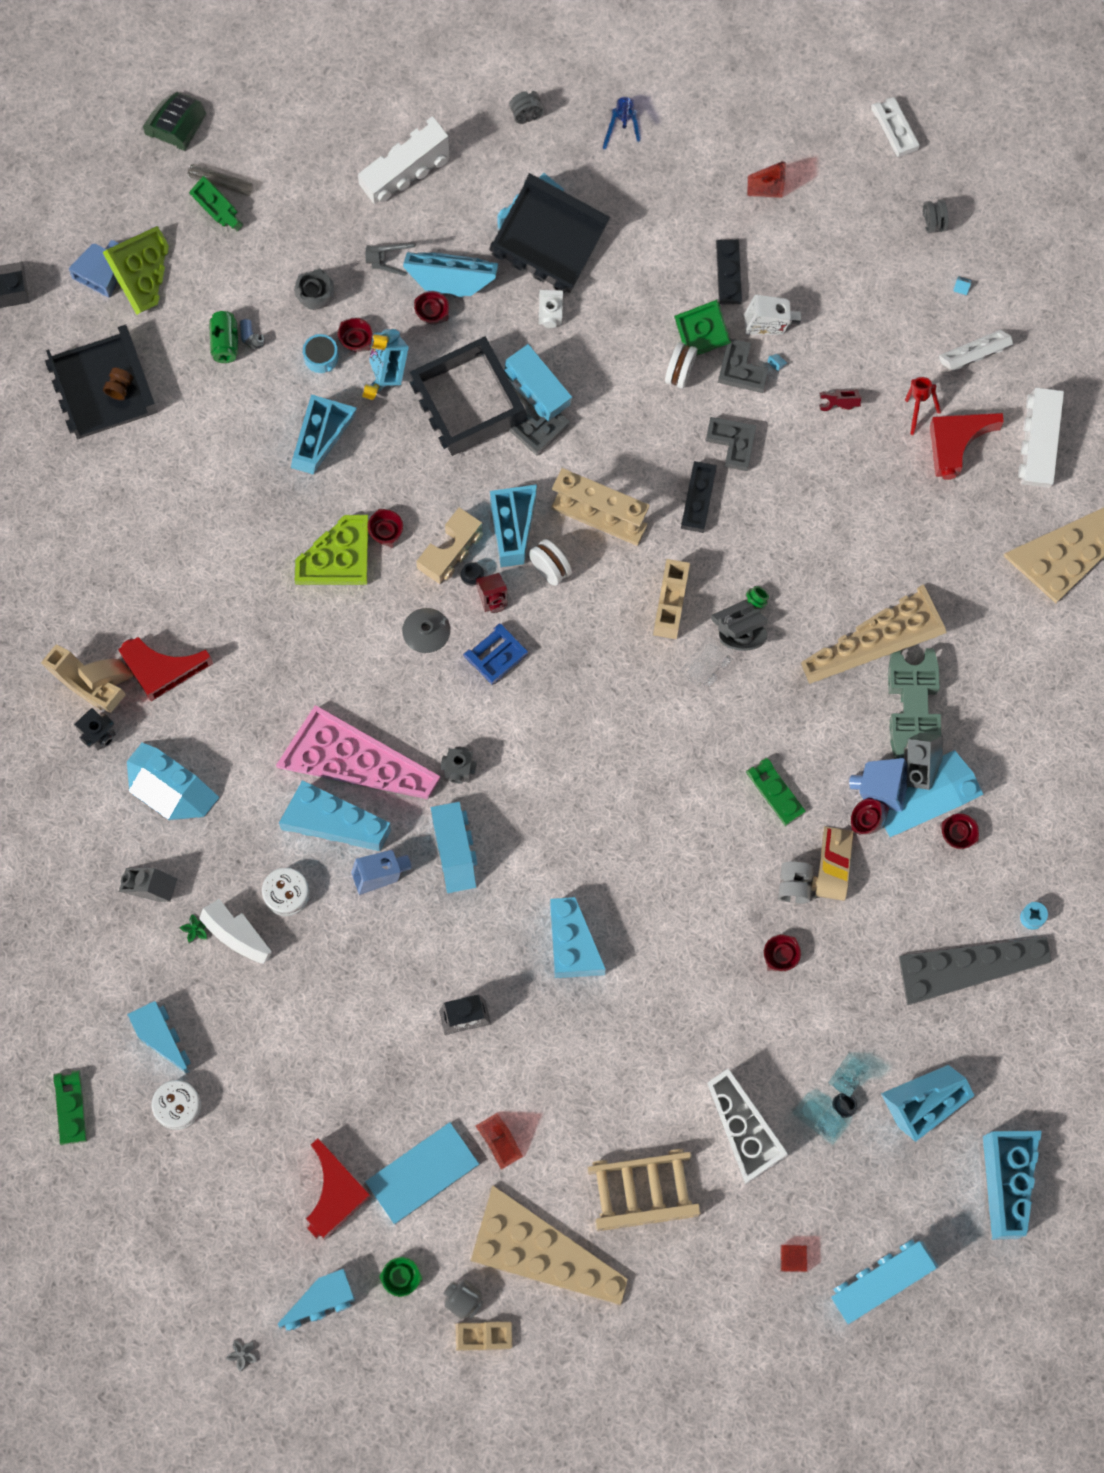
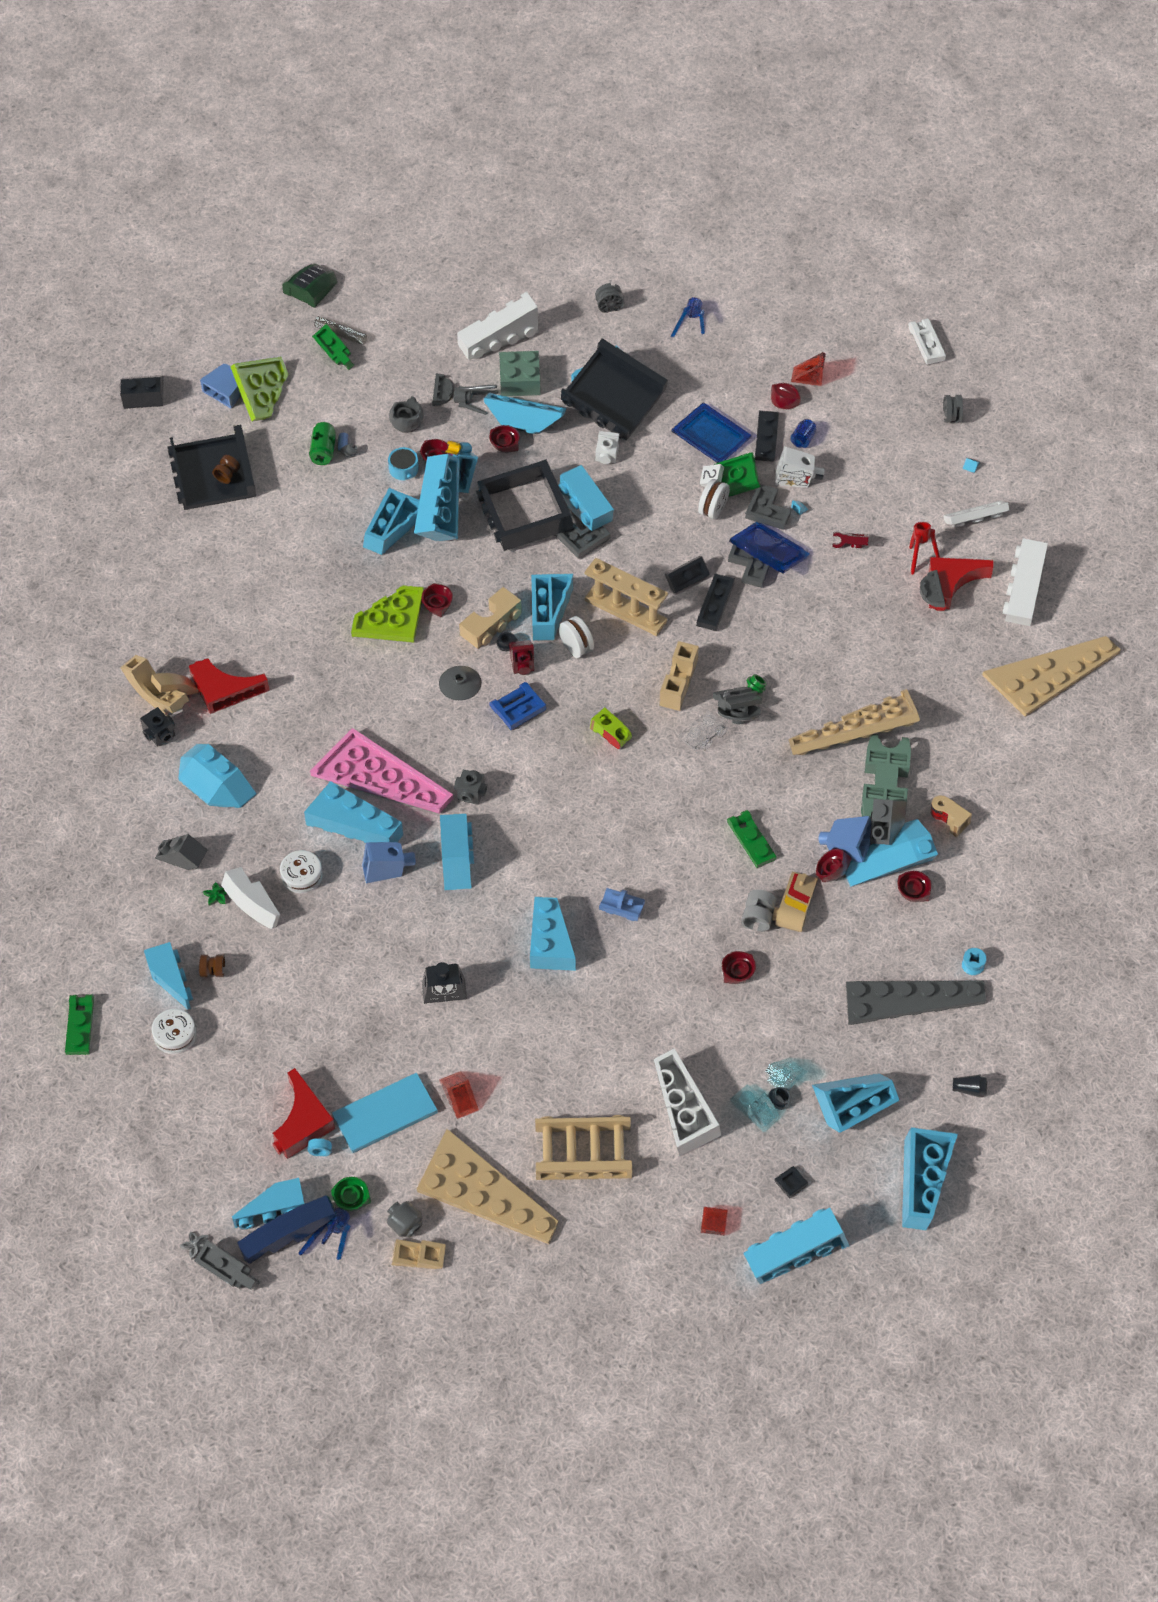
camera: 10 degrees right, 15 degrees down
(205, 1020) = (211, 965): none -> reddish brown wheel
(279, 1378) = (226, 1266): none -> dark grey hinge
(338, 1328) = (290, 1226): none -> dark blue slope
(351, 248) = (442, 390): none -> dark grey tile
(358, 1225) = (319, 1147): none -> medium azure tile
(371, 403) = (439, 499): none -> medium azure wedge
(391, 1312) = (335, 1225): none -> clear blue plant
(437, 219) = (519, 373): none -> sand green brick
(604, 673) = (610, 728): none -> lime leg
(646, 893) = (622, 904): none -> medium blue hips
(662, 465) = (687, 574): none -> black plate
(665, 275) = (711, 433): none -> clear blue piece
(673, 332) = (711, 472): none -> white tile
(743, 217) = (785, 396): none -> dark red hat
(750, 420) = (769, 547): none -> clear blue piece
(770, 265) = (803, 433): none -> clear blue brick
(869, 1201) = (791, 1182): none -> black tile
(939, 460) = (931, 589): none -> dark grey tile
(989, 736) = (951, 813): none -> tan leg
(1046, 1064) = (971, 1085): none -> black cone

